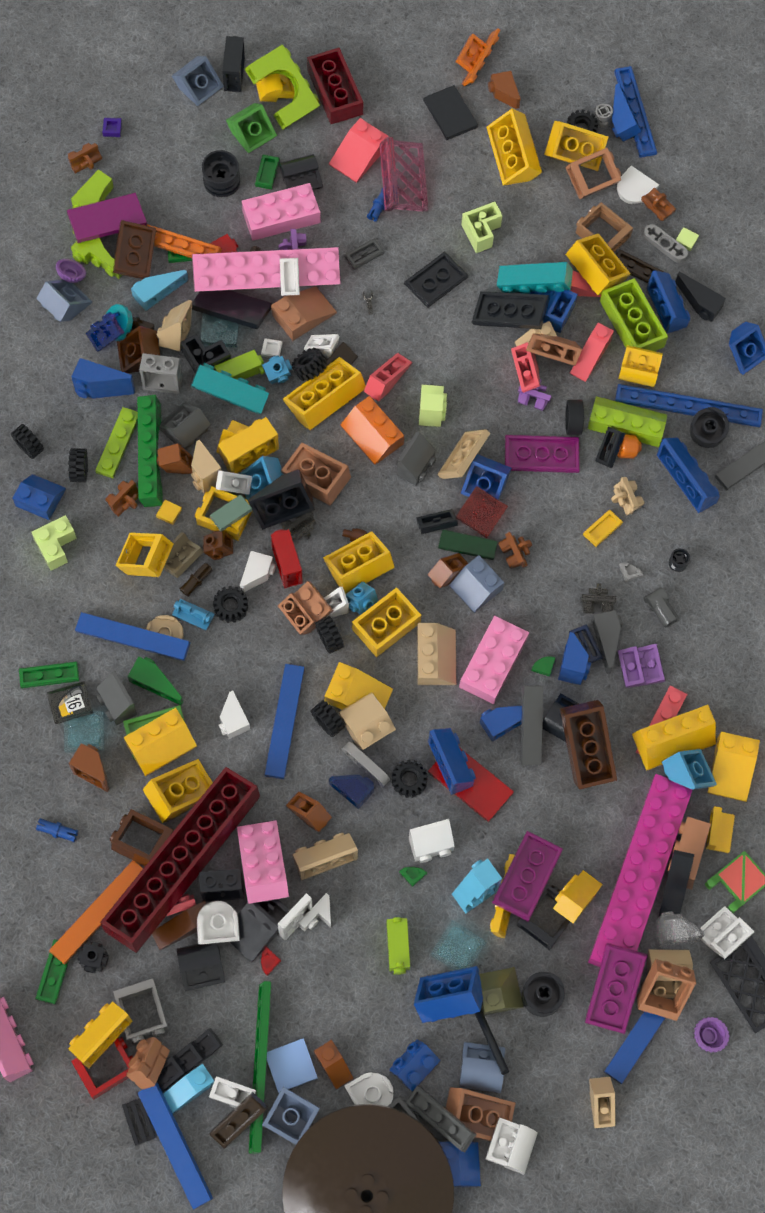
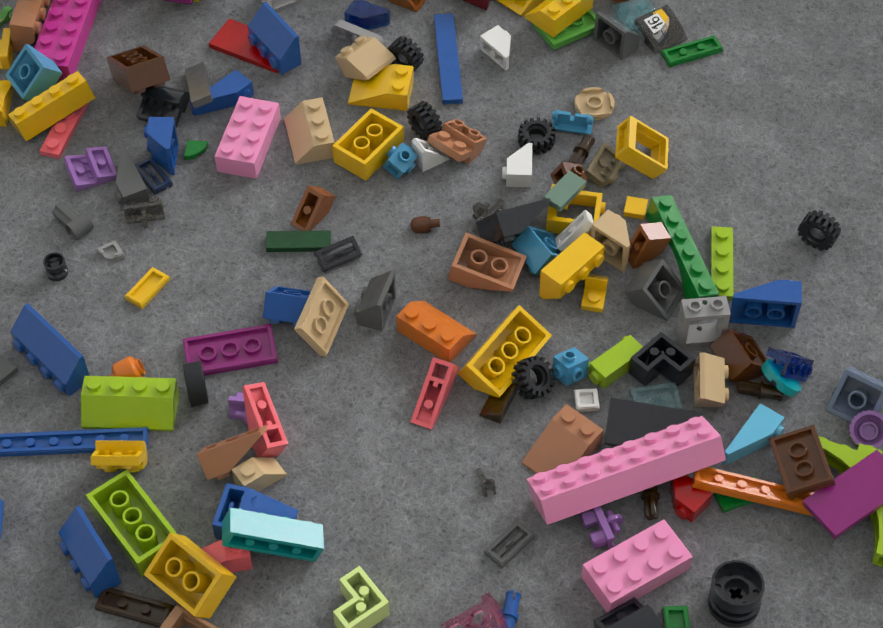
camera: 170 degrees right, 15 degrees down
(38, 496) = (780, 189): blue slope -> none
(51, 538) = (743, 149): yellowish green brick -> none
(78, 465) = (752, 218): black tyre -> none
(124, 499) = (686, 204): dark orange hips -> none
(132, 636) = (624, 89): blue tile -> none
(150, 677) = (587, 59): green slope -> none
(229, 389) = (616, 322): teal brick -> none
(286, 558) = (491, 173): red window -> none
(289, 276) = (591, 454): white tile -> none
(325, 343) = (525, 406): white slope -> none
(359, 561) = (413, 192): yellow slope -> none
(412, 767) = (313, 25): black tyre -> none
(432, 405) = (371, 360): yellowish green brick -> none
(436, 279) = (405, 531): black tile -> none
(477, 584) = (275, 203): sand blue slope -> none
(481, 512) = (289, 269): clear red plate -> none
(510, 310) = (298, 496): black tile -> none
(517, 558) = (241, 241): dark orange hips -> none
(592, 351) = (181, 480): coral slope -> none
(611, 447) = (143, 365): black tile -> none
(625, 496) = (124, 317): tan hips -> none
(702, 299) = (41, 575): black slope -> none
(718, 432) = (26, 405): black brick -> none

